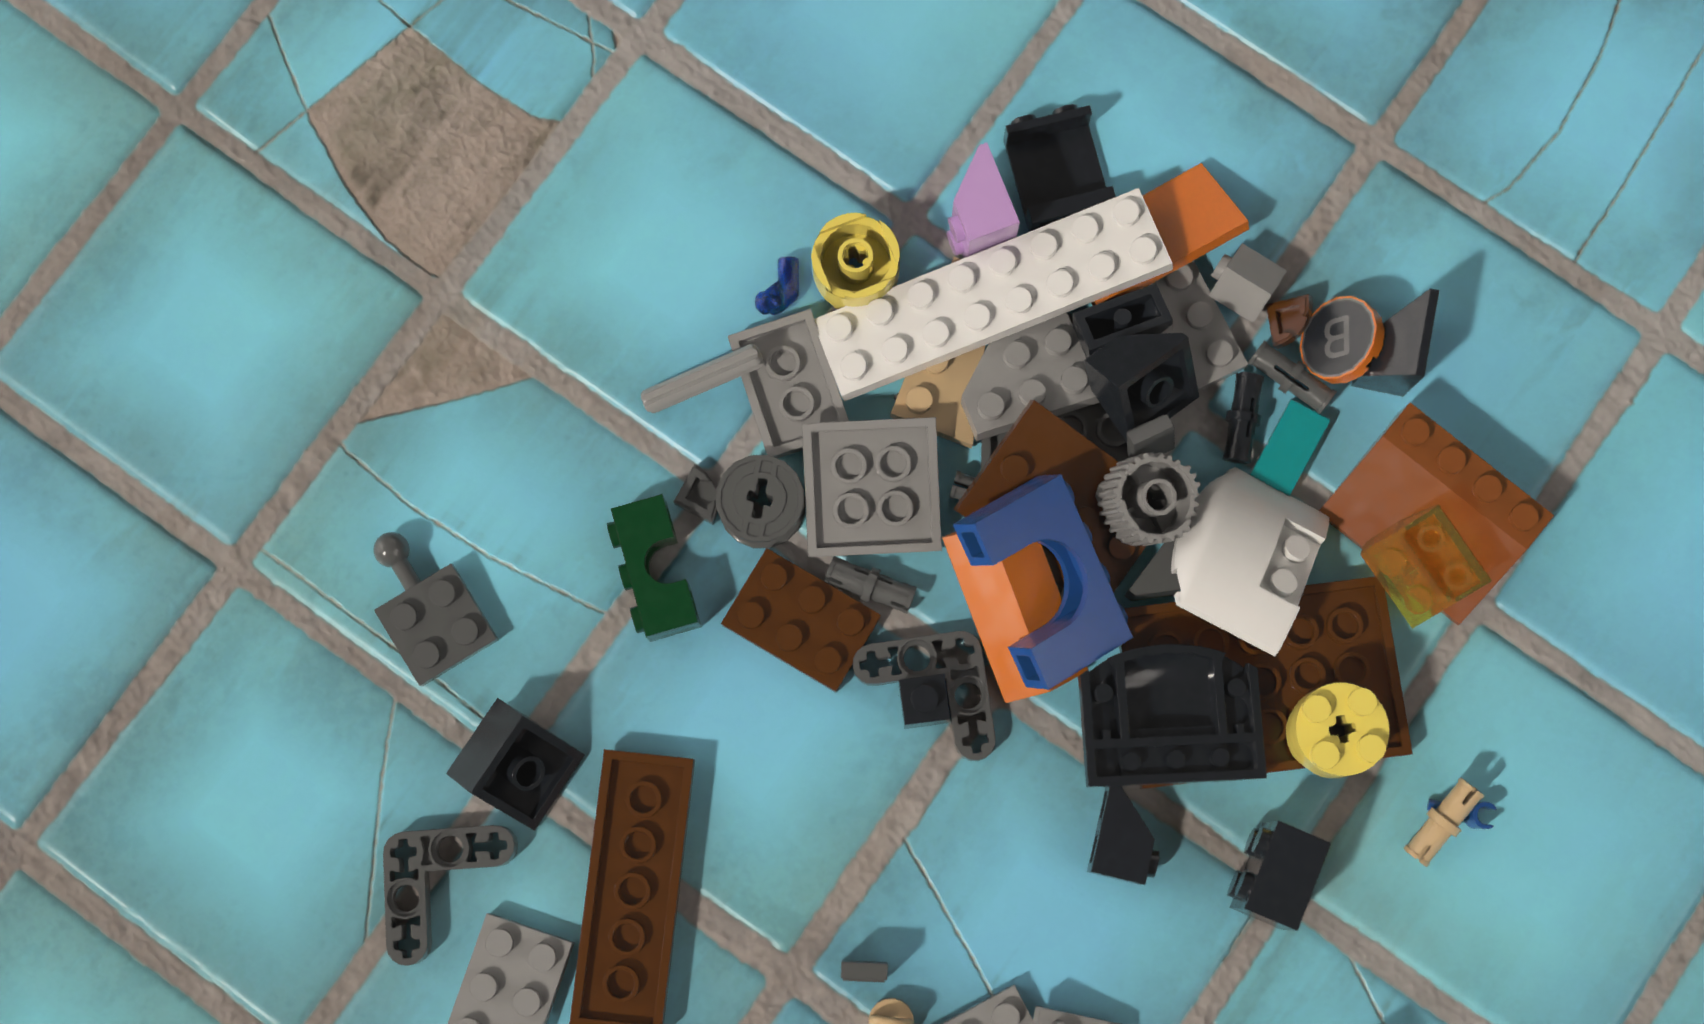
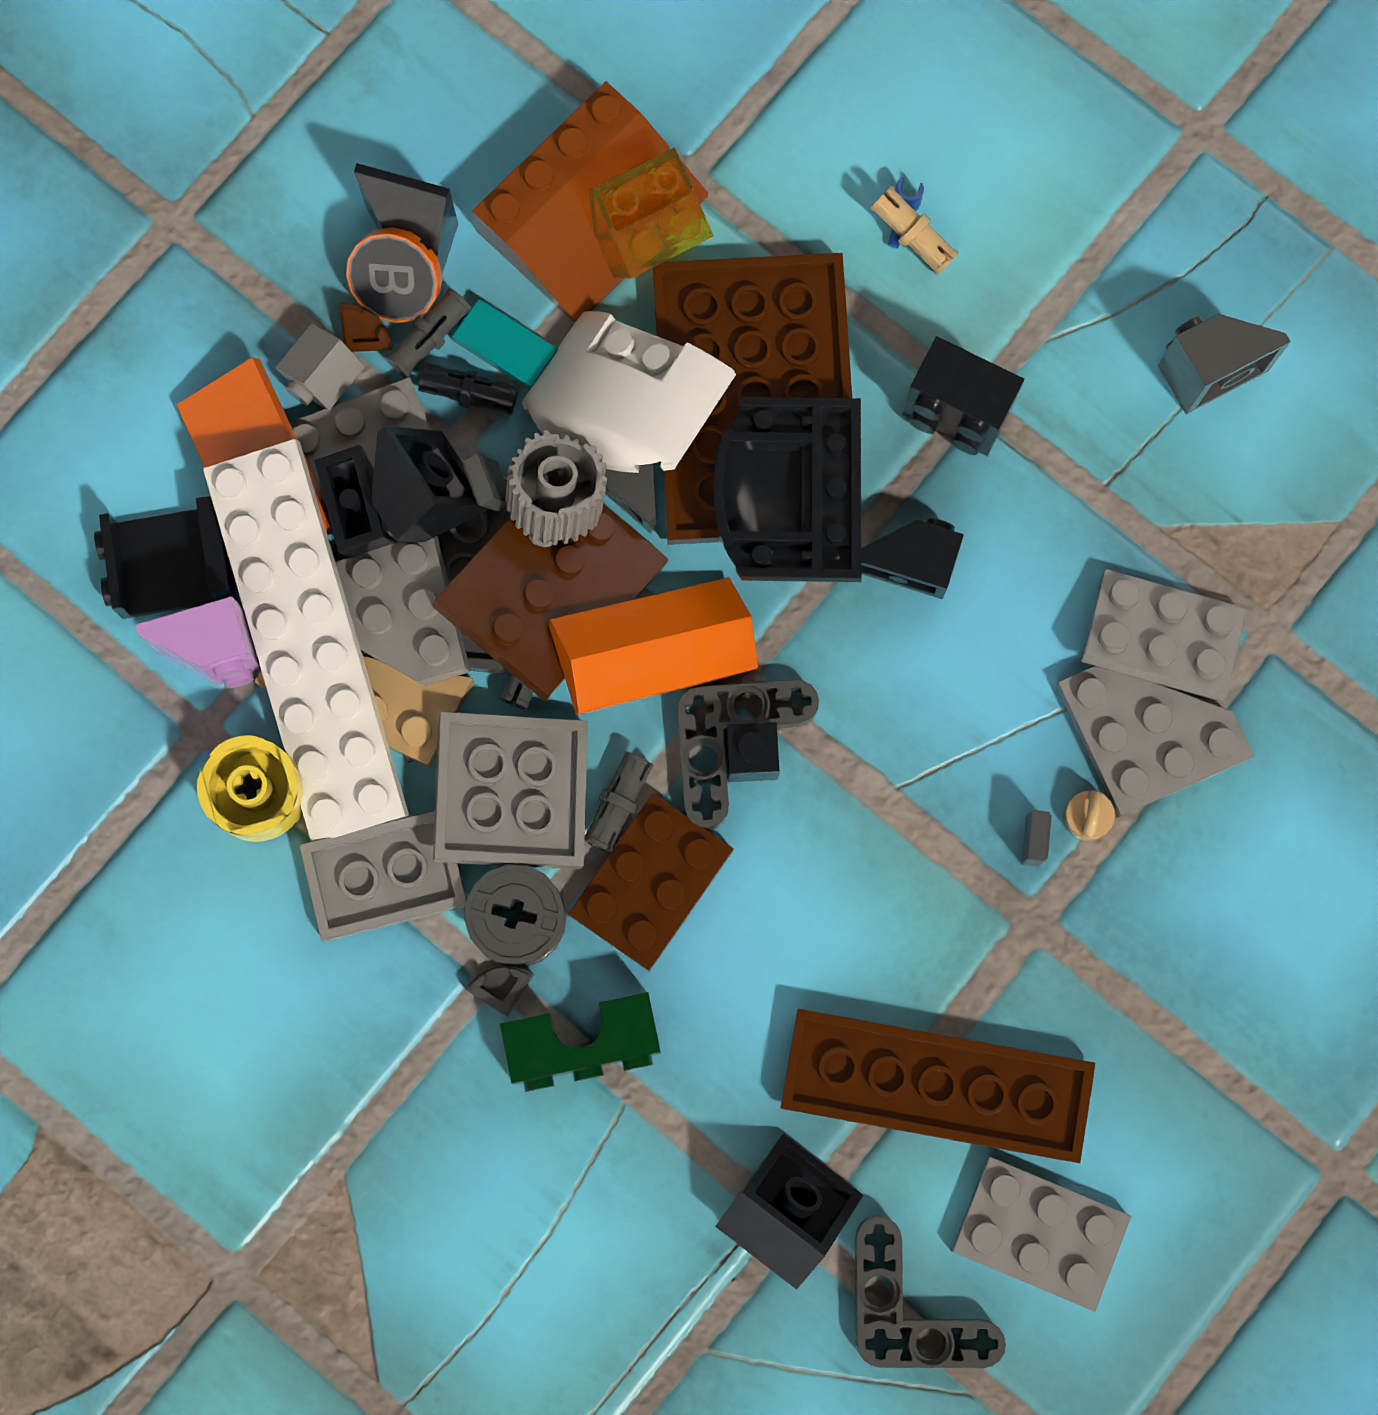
camera: 90 degrees left, 0 degrees up
(434, 619) = (617, 1298): dark grey plate -> none
(702, 378) = (368, 972): light grey axle -> none
(783, 292) = (274, 875): clear blue arm -> none
(1089, 616) = (674, 565): blue arch -> none
(1327, 754) = (822, 295): light yellow brick -> none

